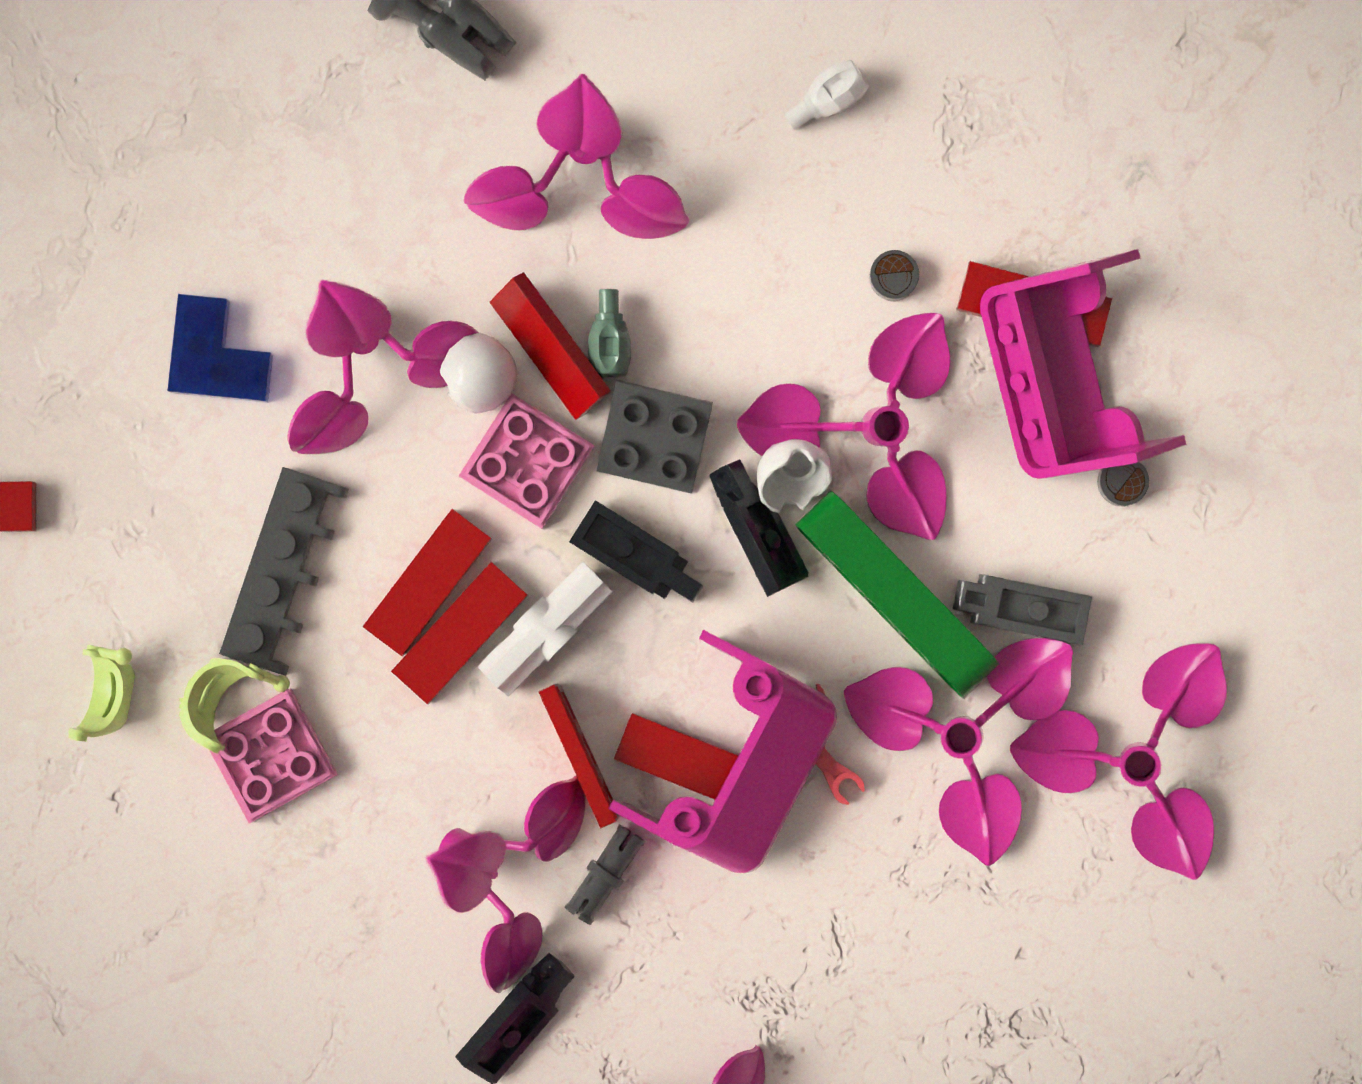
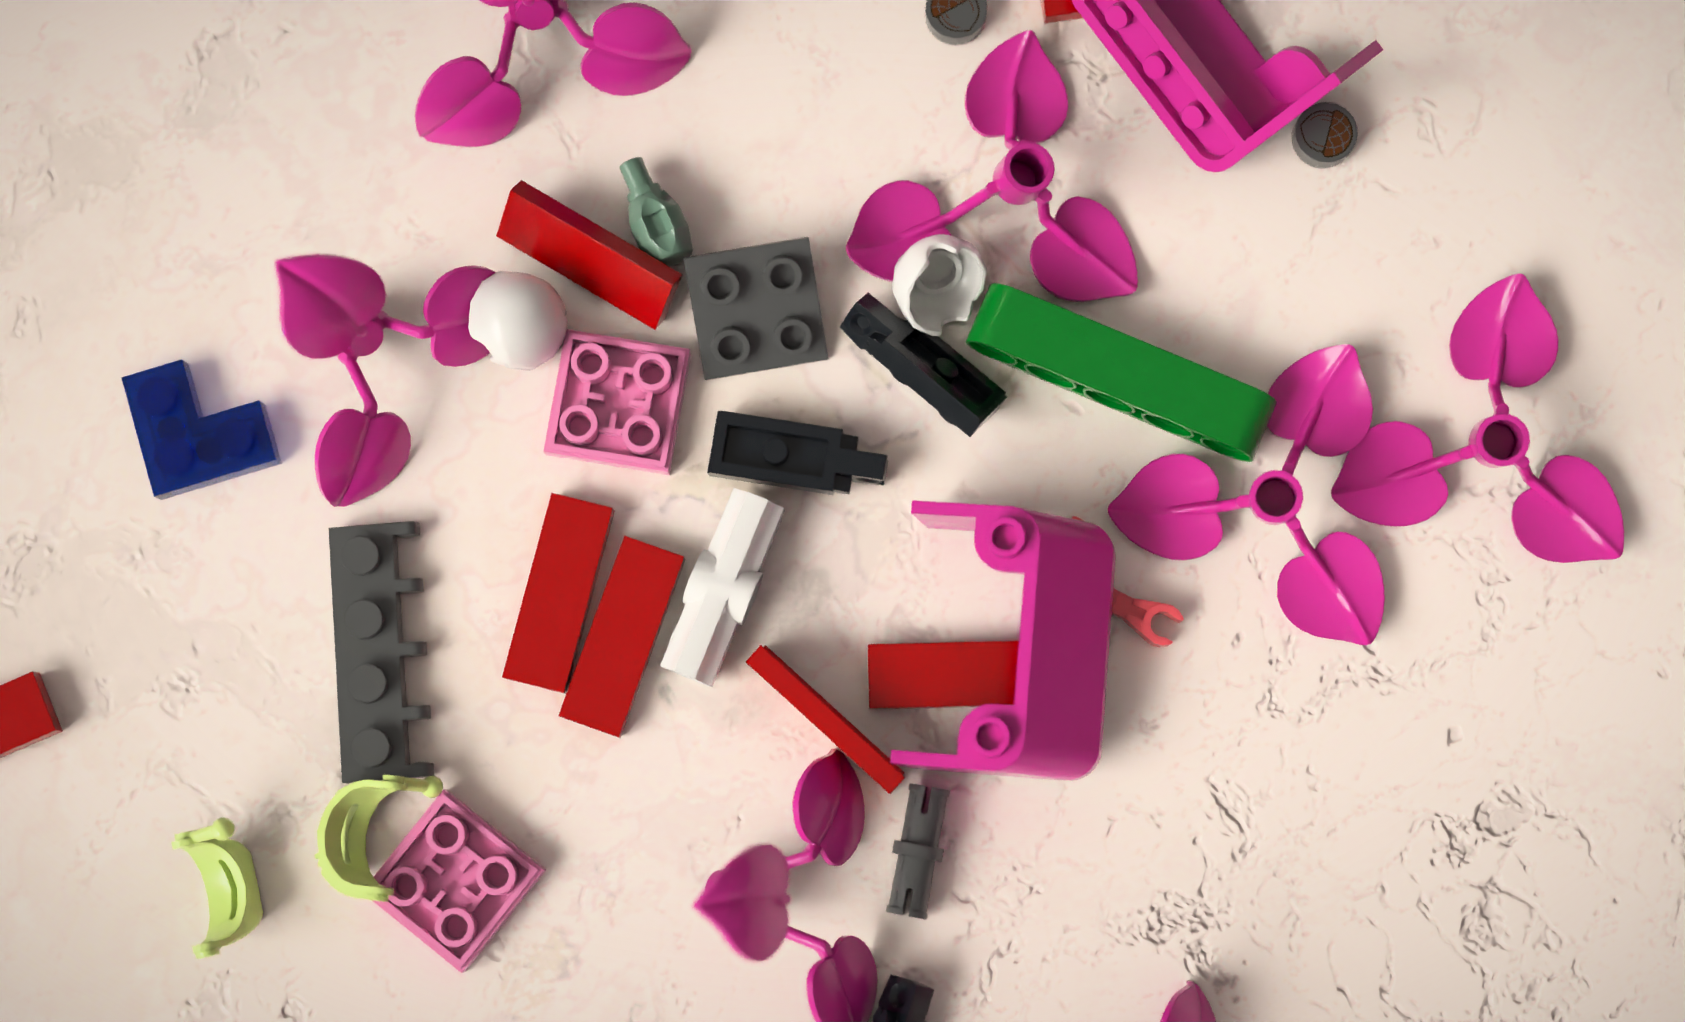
camera: 20 degrees left, 5 degrees down
(1024, 608) = (1276, 326): dark grey hinge -> none

